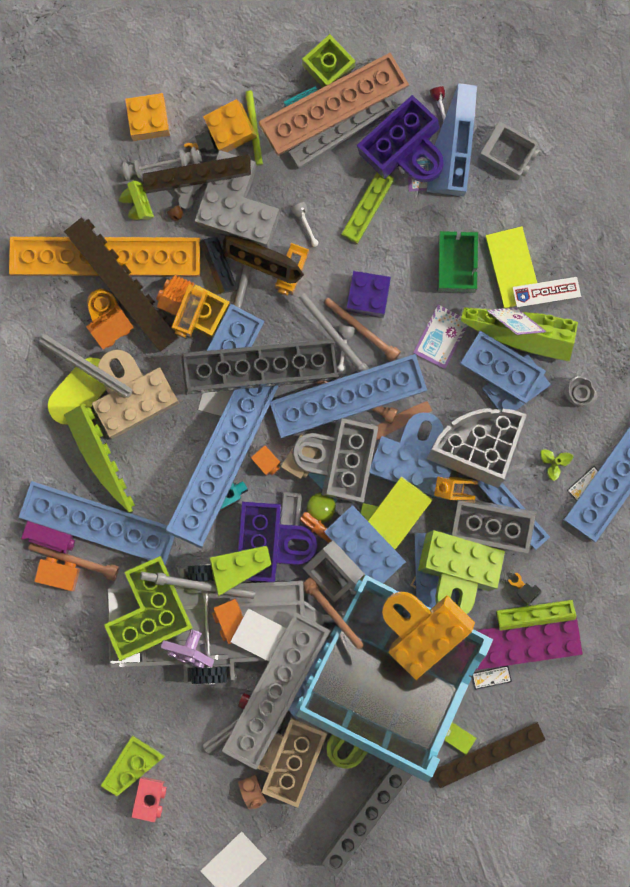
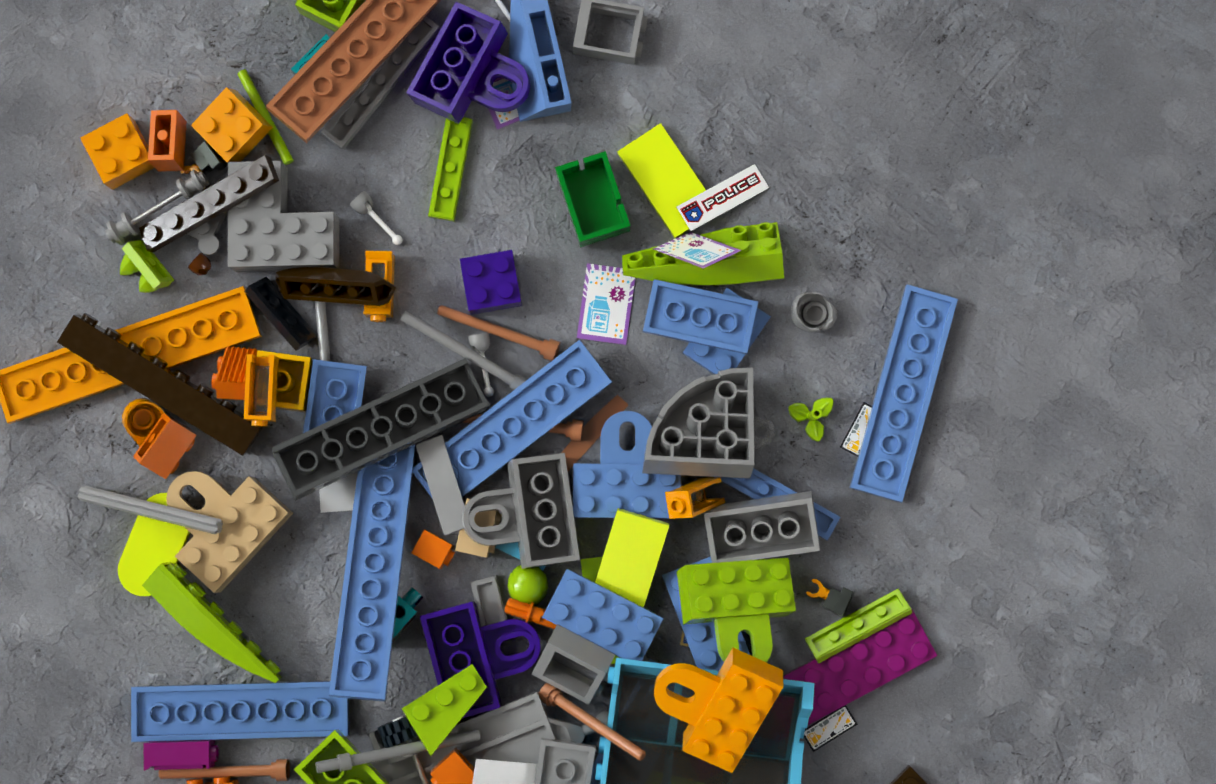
camera: 20 degrees left, 0 degrees up
(183, 121) = (167, 140): none -> orange brick
(287, 418) = (442, 483): none -> light grey sticker

